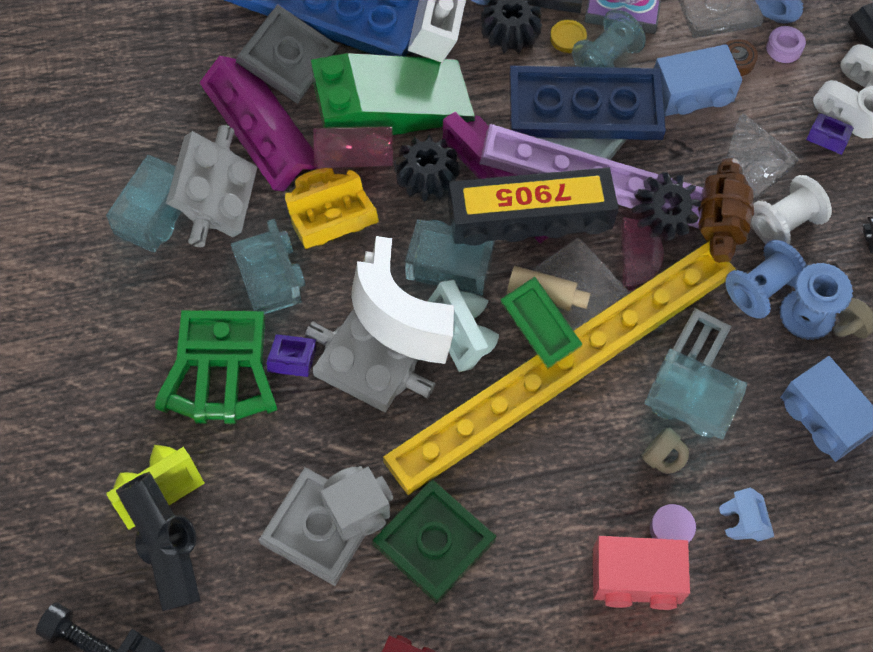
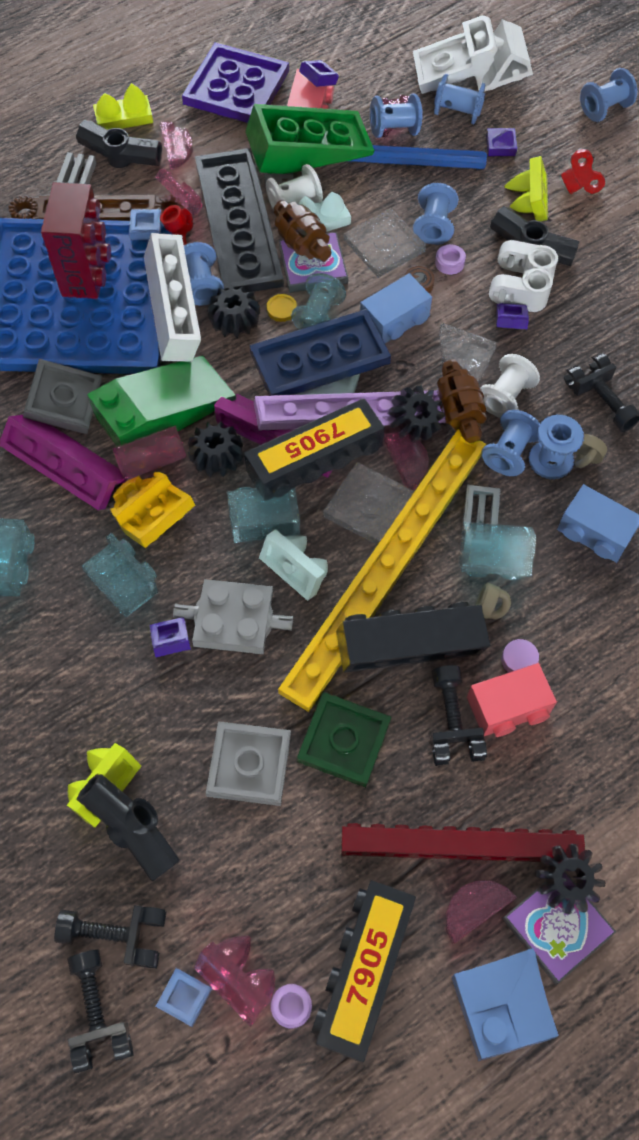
camera: 20 degrees left, 0 degrees up
(211, 185) = (46, 524): light grey plate -> none
(221, 340) = (107, 646): green plate -> none
(357, 501) = (273, 732): light grey brick -> none
(393, 316) = (243, 575): white arch -> none
(541, 322) = (358, 538): green tile -> none
(556, 456) = (412, 637): none -> black brick
(560, 290) = (351, 510): tan cylinder -> none
(577, 519) = (447, 679): none -> black bar
(752, 513) = (575, 625): light blue tile -> none

